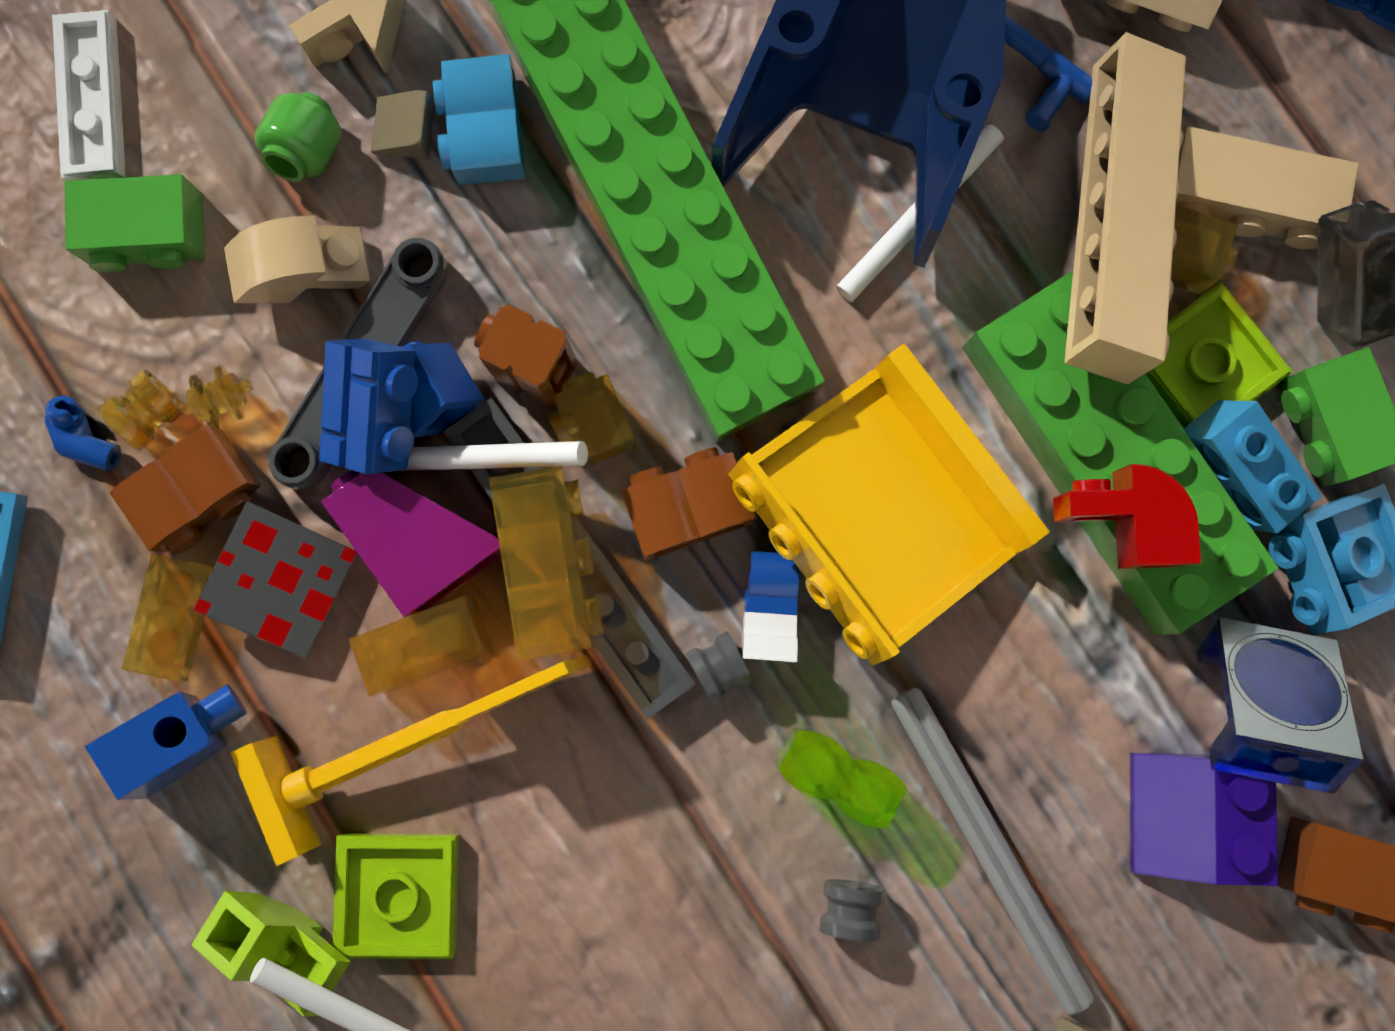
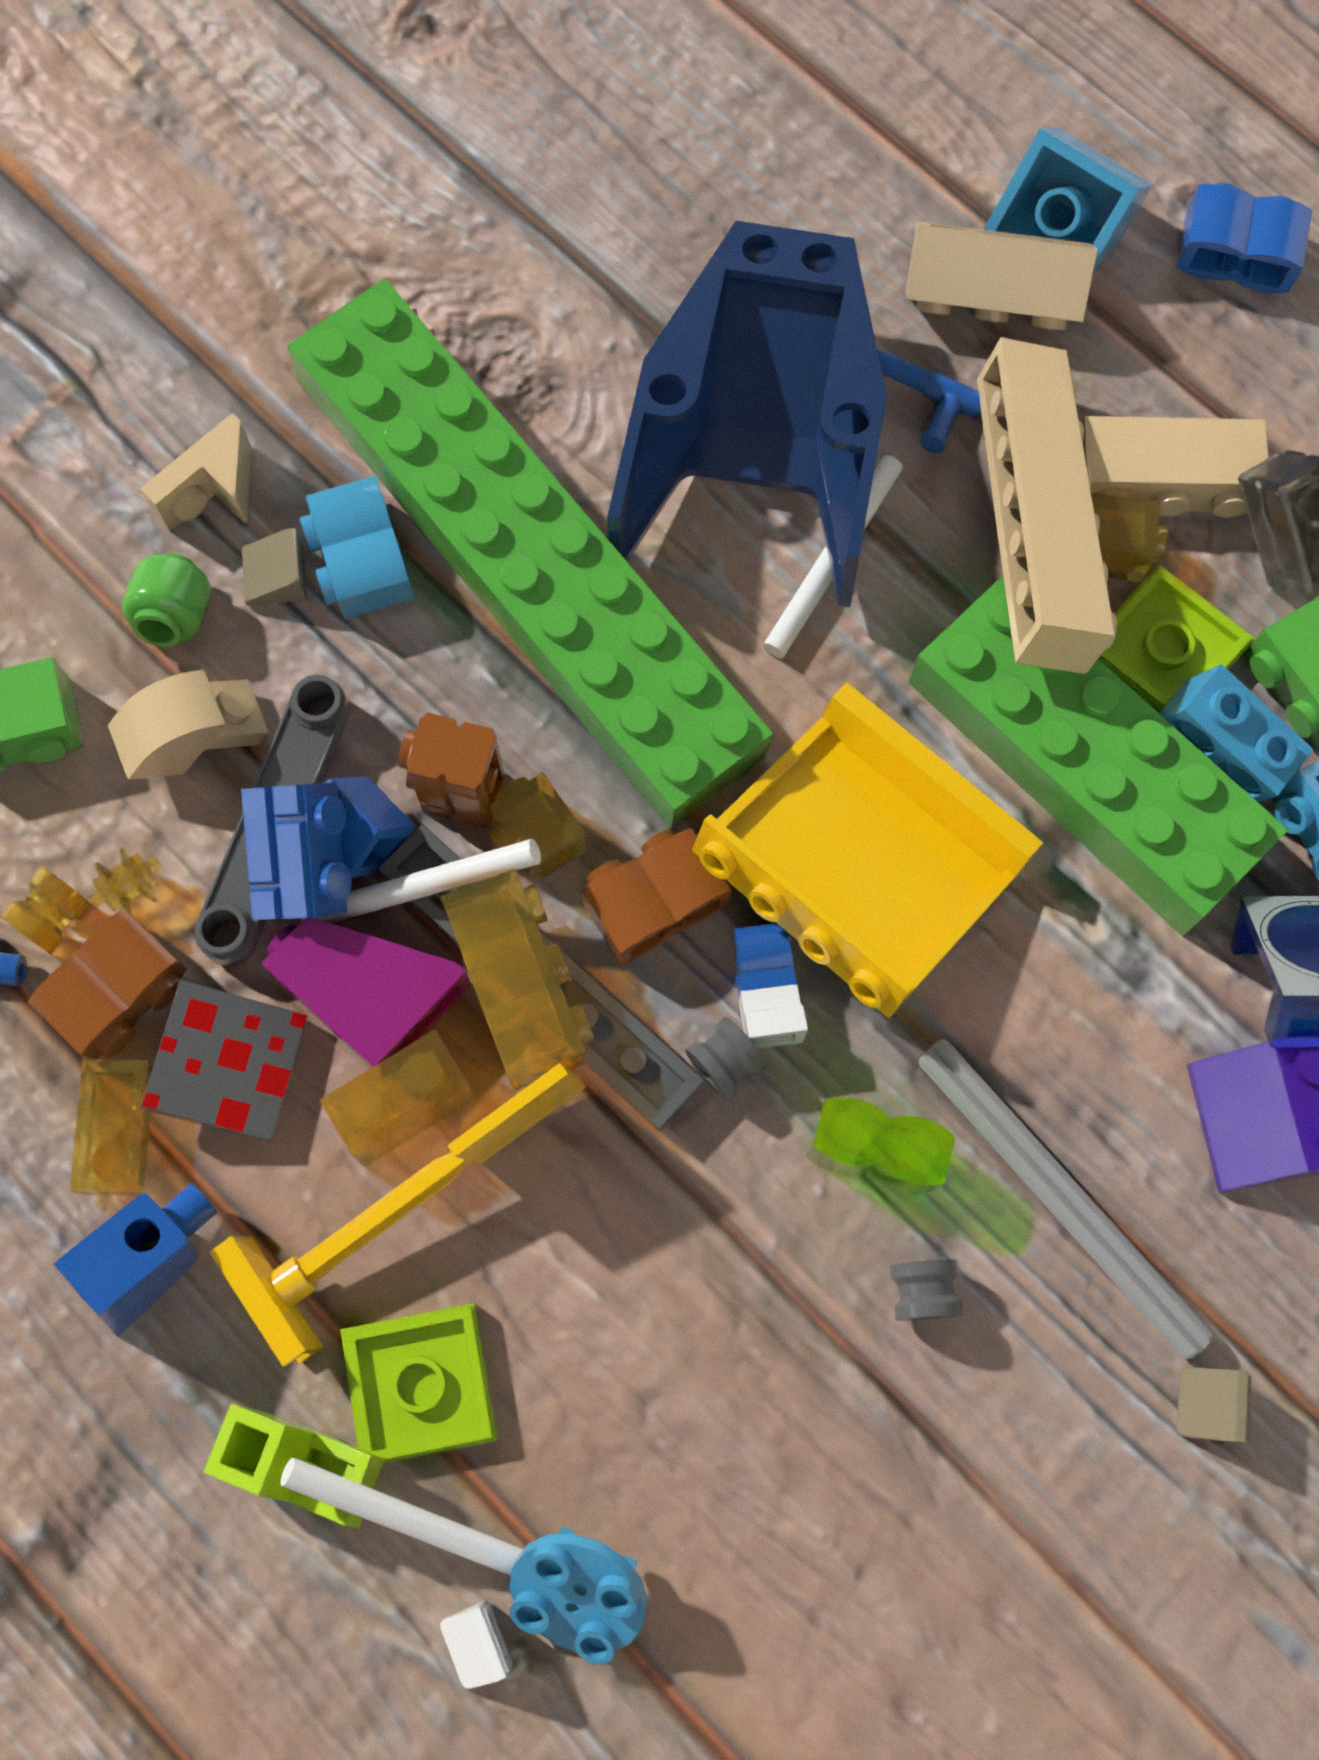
camera: 10 degrees left, 10 degrees down
(1150, 511) = (1137, 789): red brick -> none

